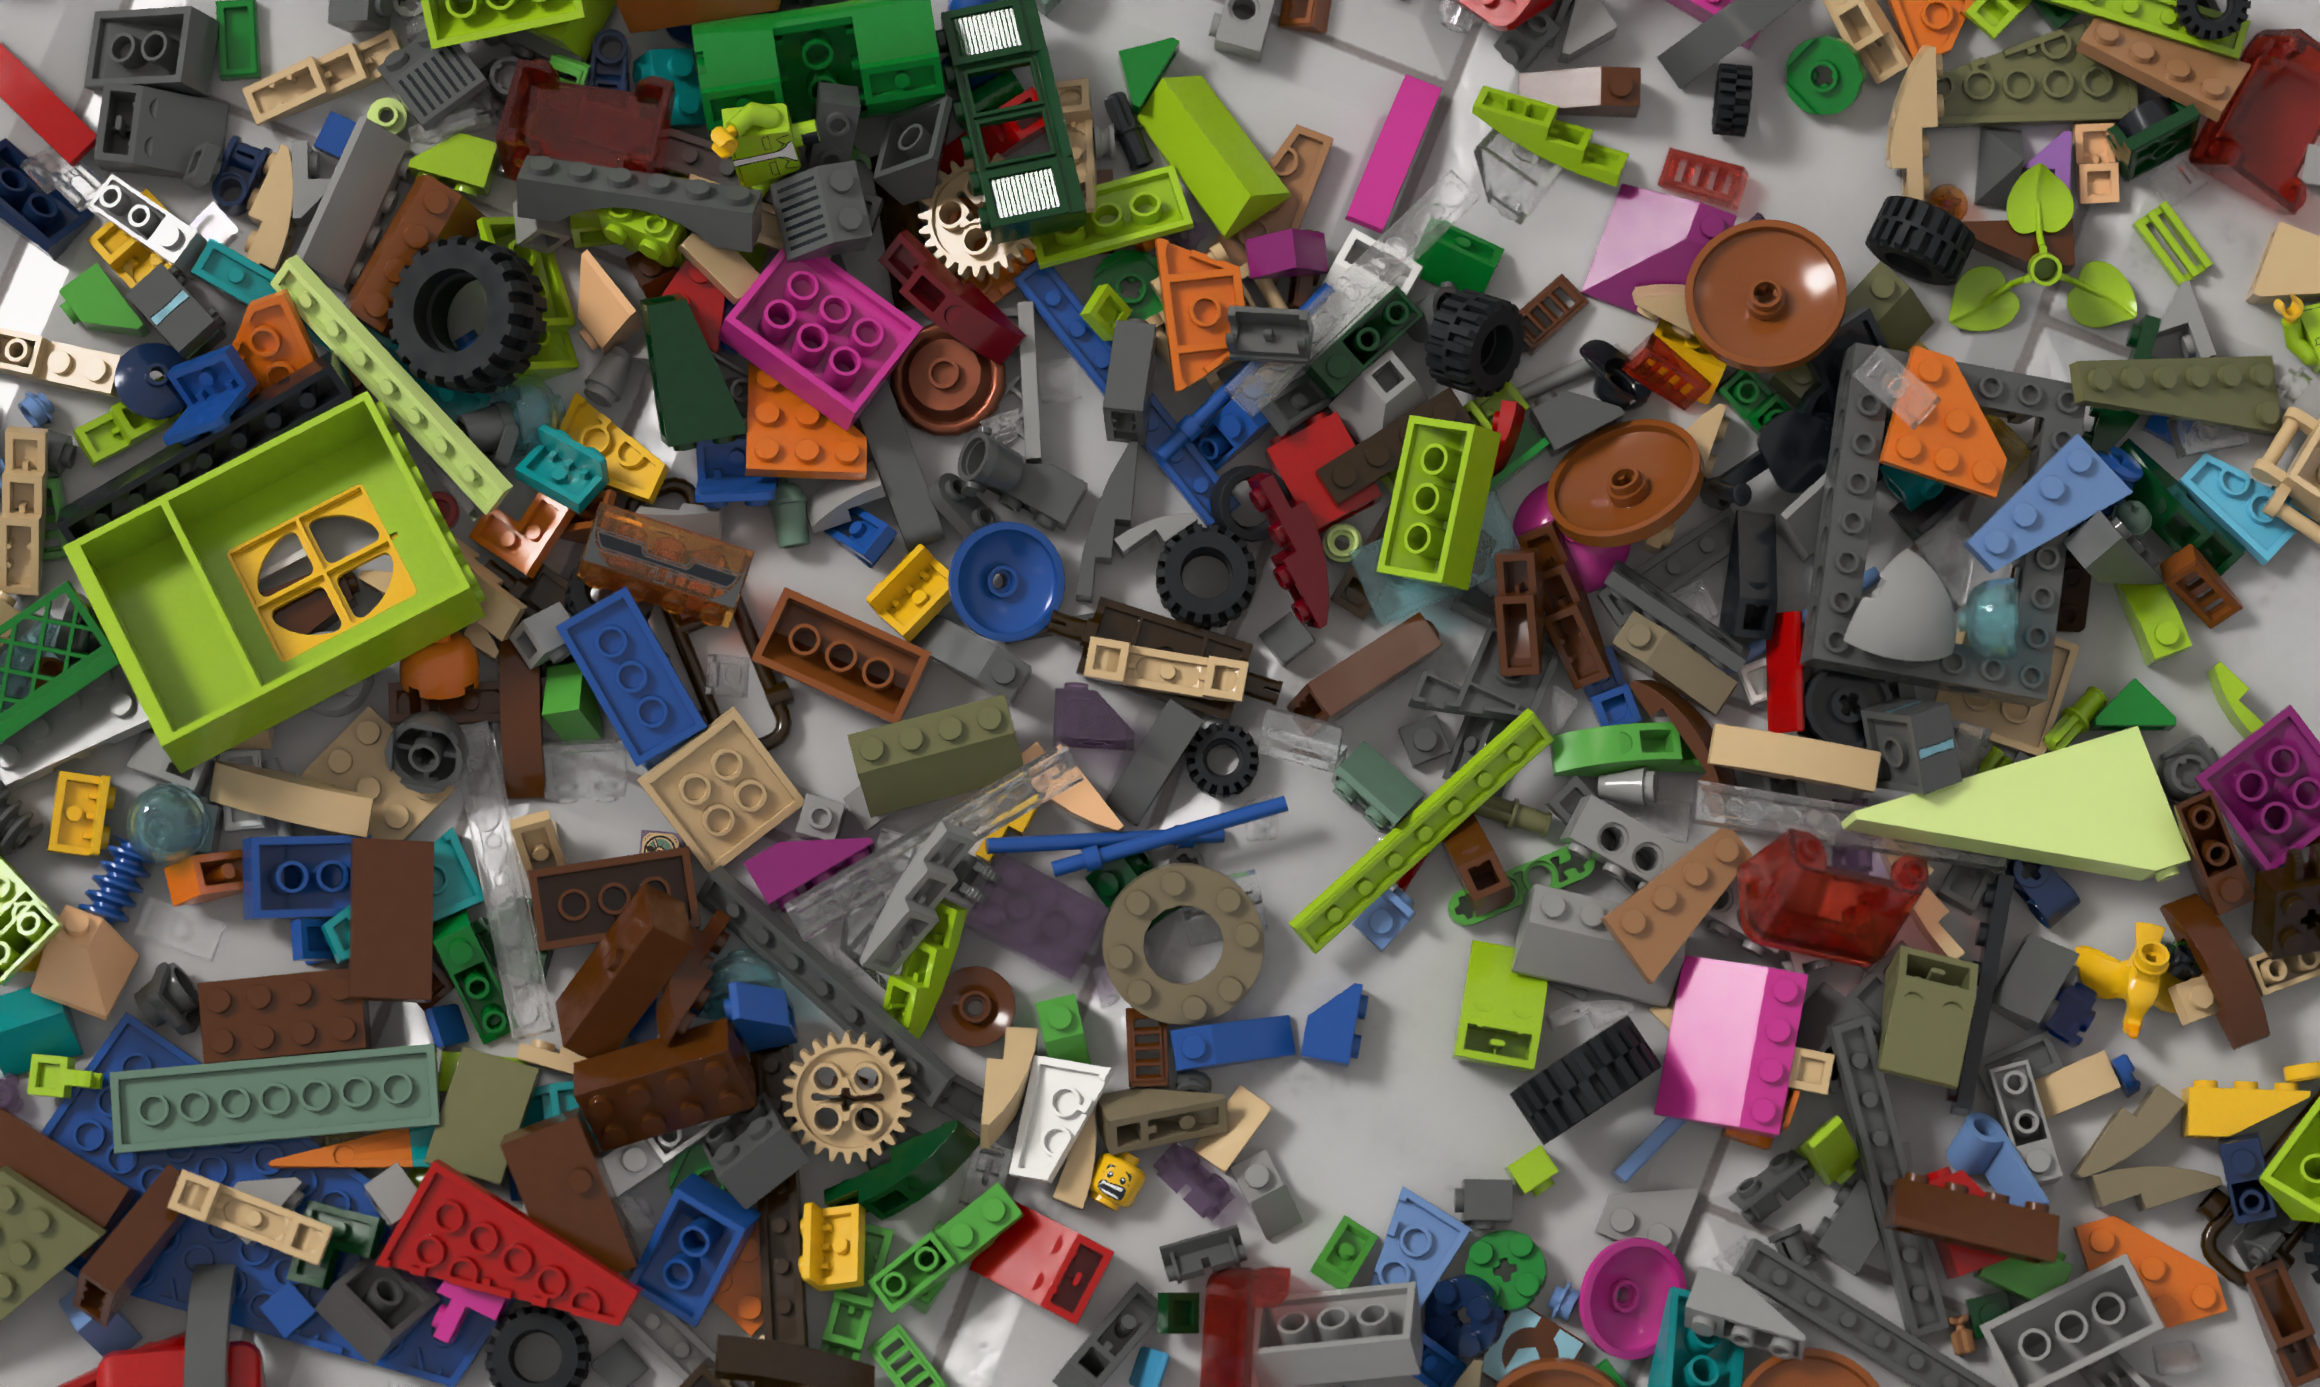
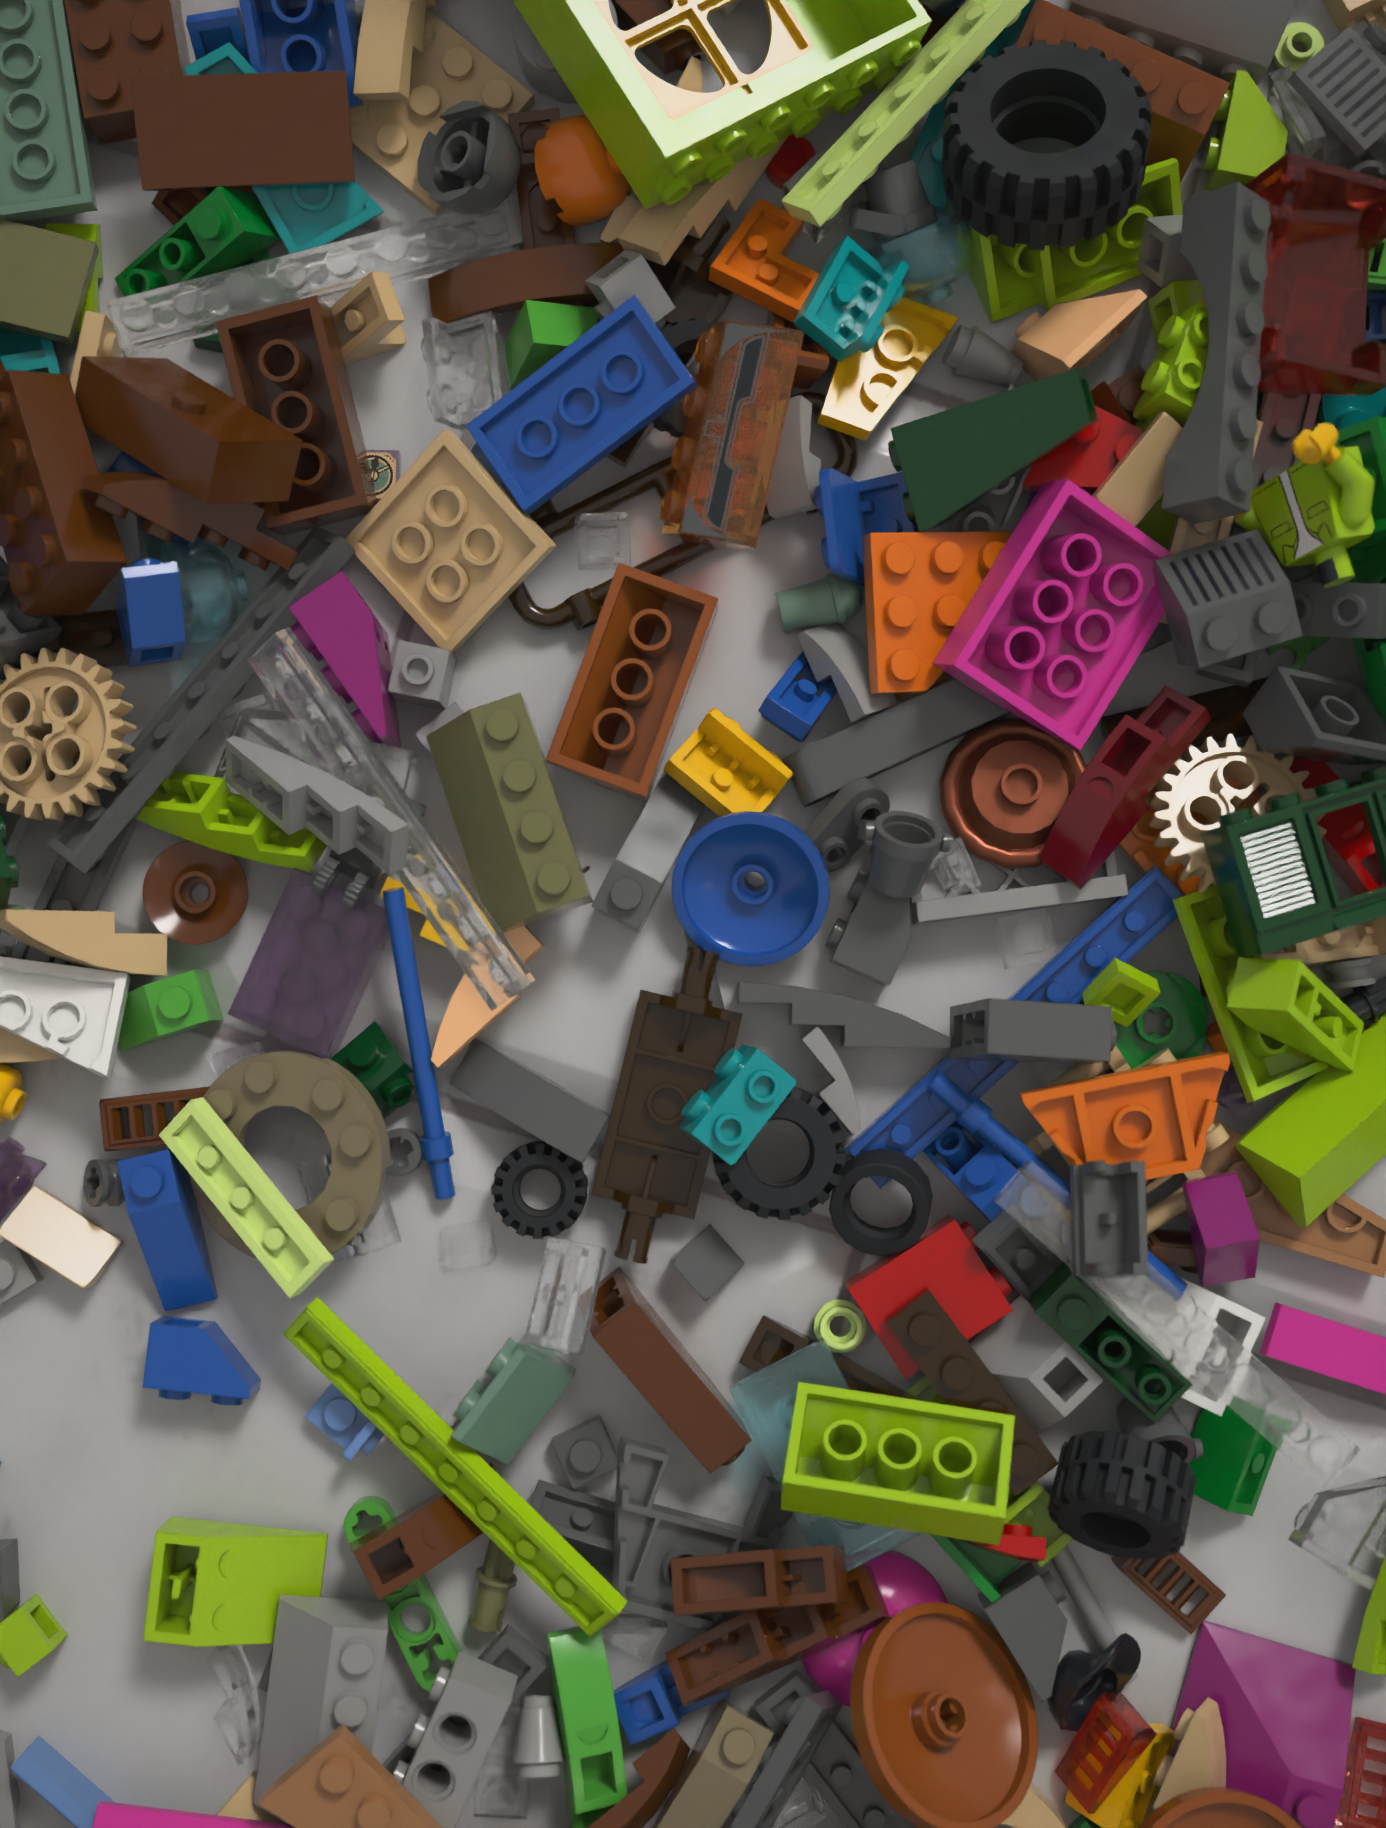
camera: 90 degrees right, 5 degrees up
(447, 1026) = (129, 225): blue slope -> none
(1088, 721) = (572, 1009): clear purple slope -> none
(1094, 857) = (390, 1031): blue bar -> none
(1128, 186) = (1295, 1008): none -> lime slope
(1157, 1117) = (61, 1134): dark tan slope -> none
(1166, 602) = (736, 1102): none -> teal bracket
(1166, 671) = (646, 1109): tan slope -> none
(1209, 970) = (246, 1197): none -> yellowish green plate
(1302, 561) = (813, 1277): dark red slope -> none
(1585, 1079) = (124, 1719): black tyre -> none

